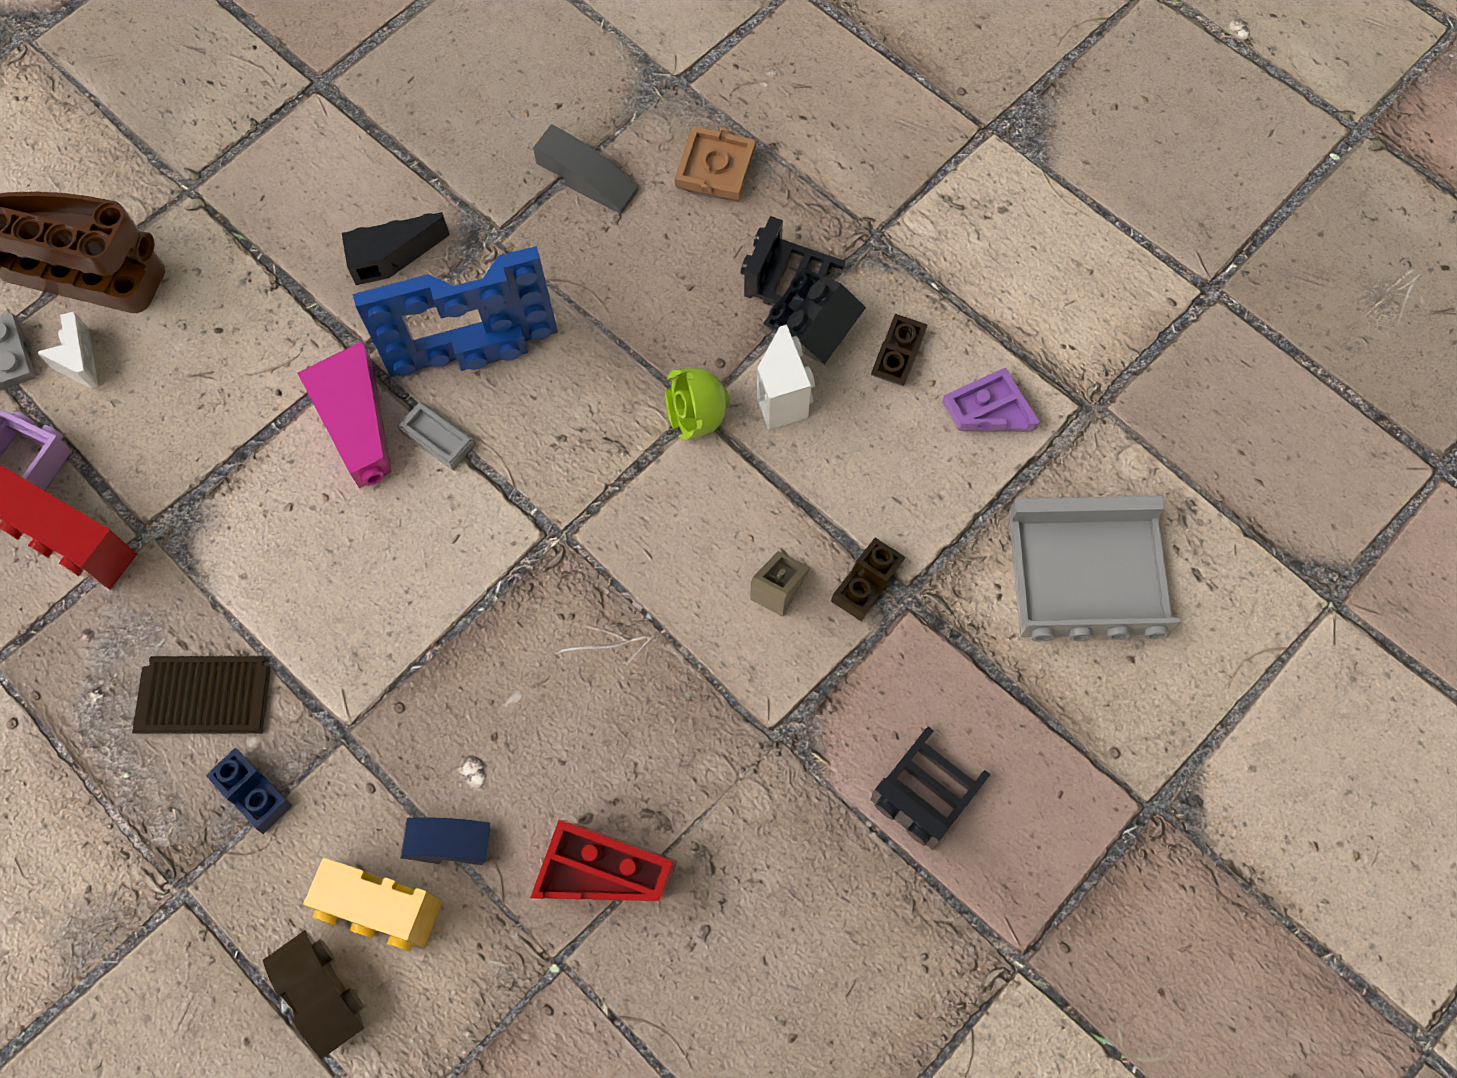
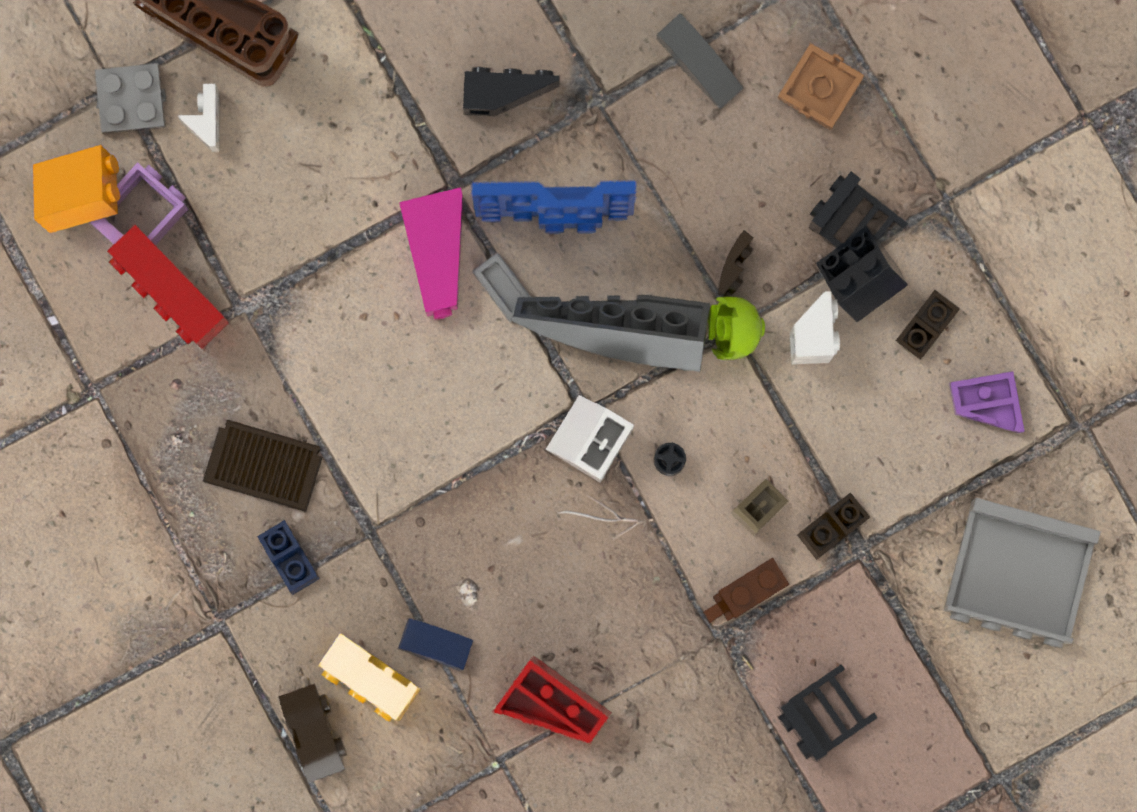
camera: 15 degrees right, 15 degrees up
(571, 558) = (590, 438): none -> white slope
(602, 435) = (637, 331): none -> dark grey wedge
(663, 549) = (670, 454): none -> black wheel
(677, 339) = (731, 272): none -> dark brown slope
(794, 677) = (747, 591): none -> reddish brown hinge

